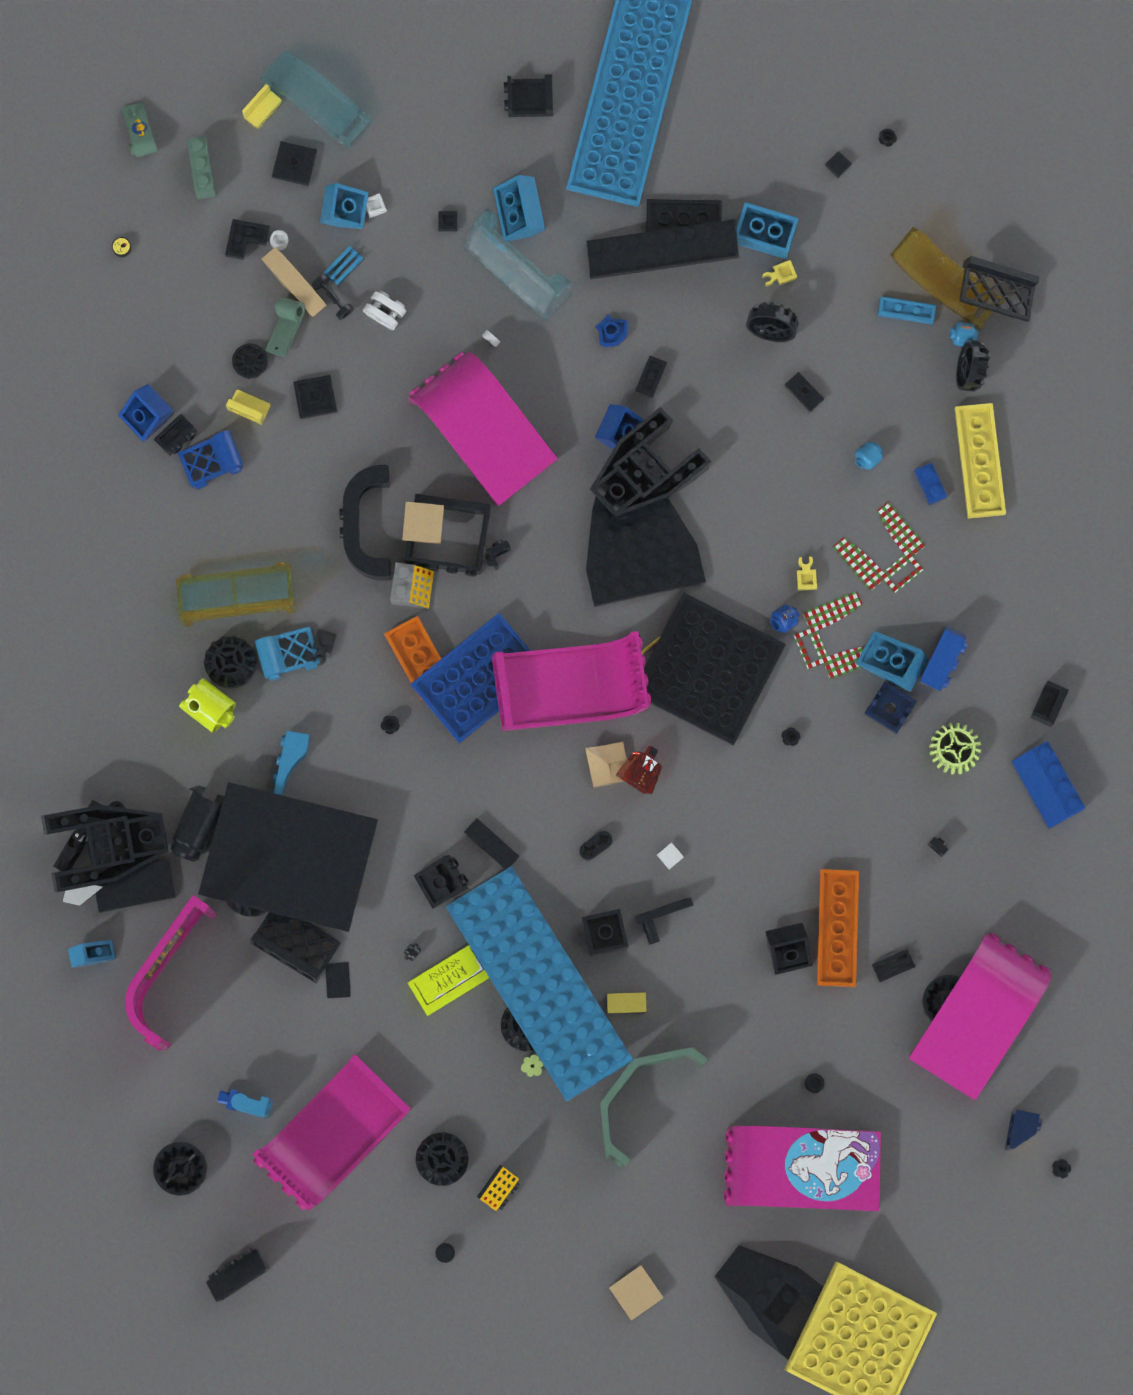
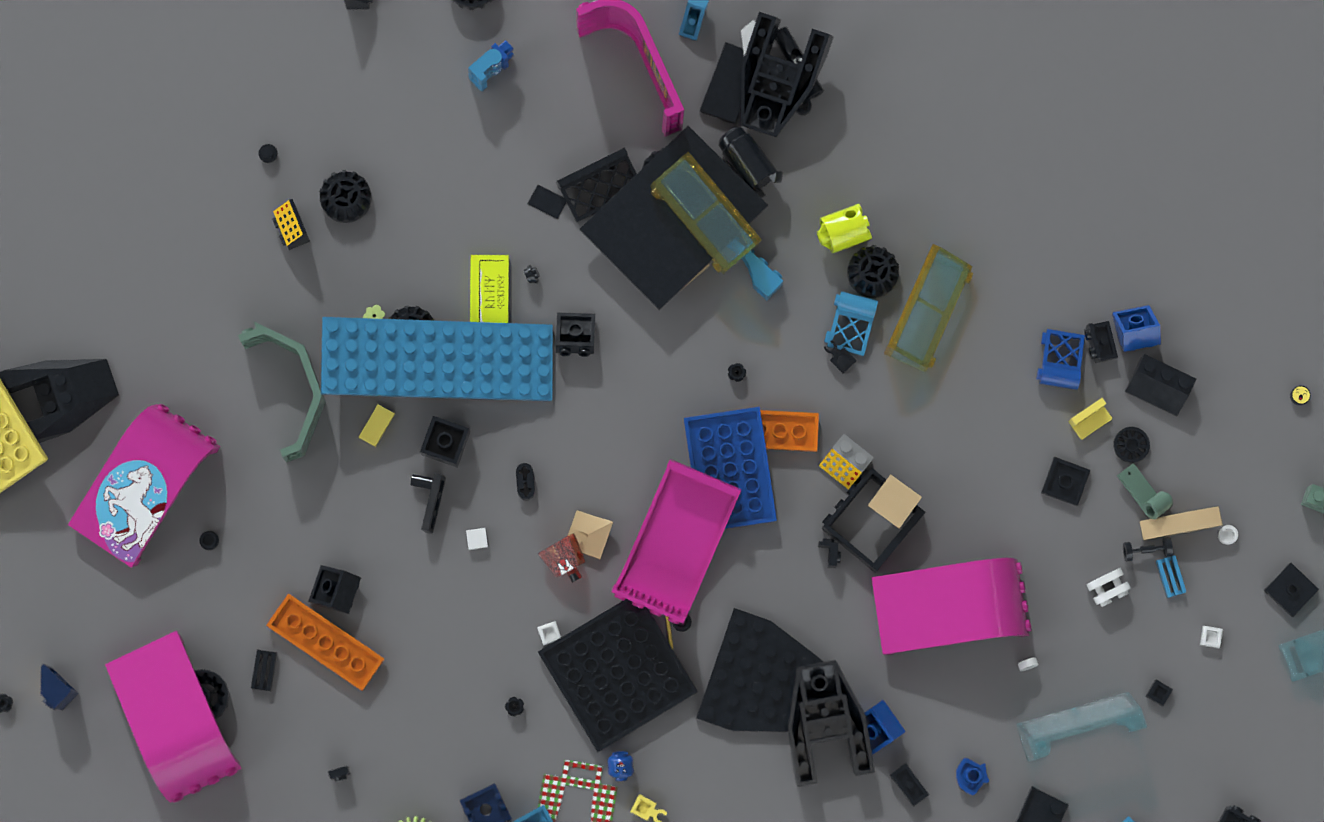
camera: 115 degrees right, 0 degrees up
(183, 365) = (1160, 385): none -> black slope
(242, 233) = (1252, 505): black plate -> none
(269, 827) = (706, 213): none -> windscreen
(332, 1134) = (421, 116): dark pink panel -> none
(344, 206) = (1224, 608): dark azure slope -> none
(368, 478) = (935, 445): black arch -> none
(491, 844) = (581, 395): black tile -> none
(519, 208) = (1133, 762): dark azure slope -> none
(636, 1292) = (134, 286): tan tile -> none
(711, 746) = (549, 633): none -> white tile

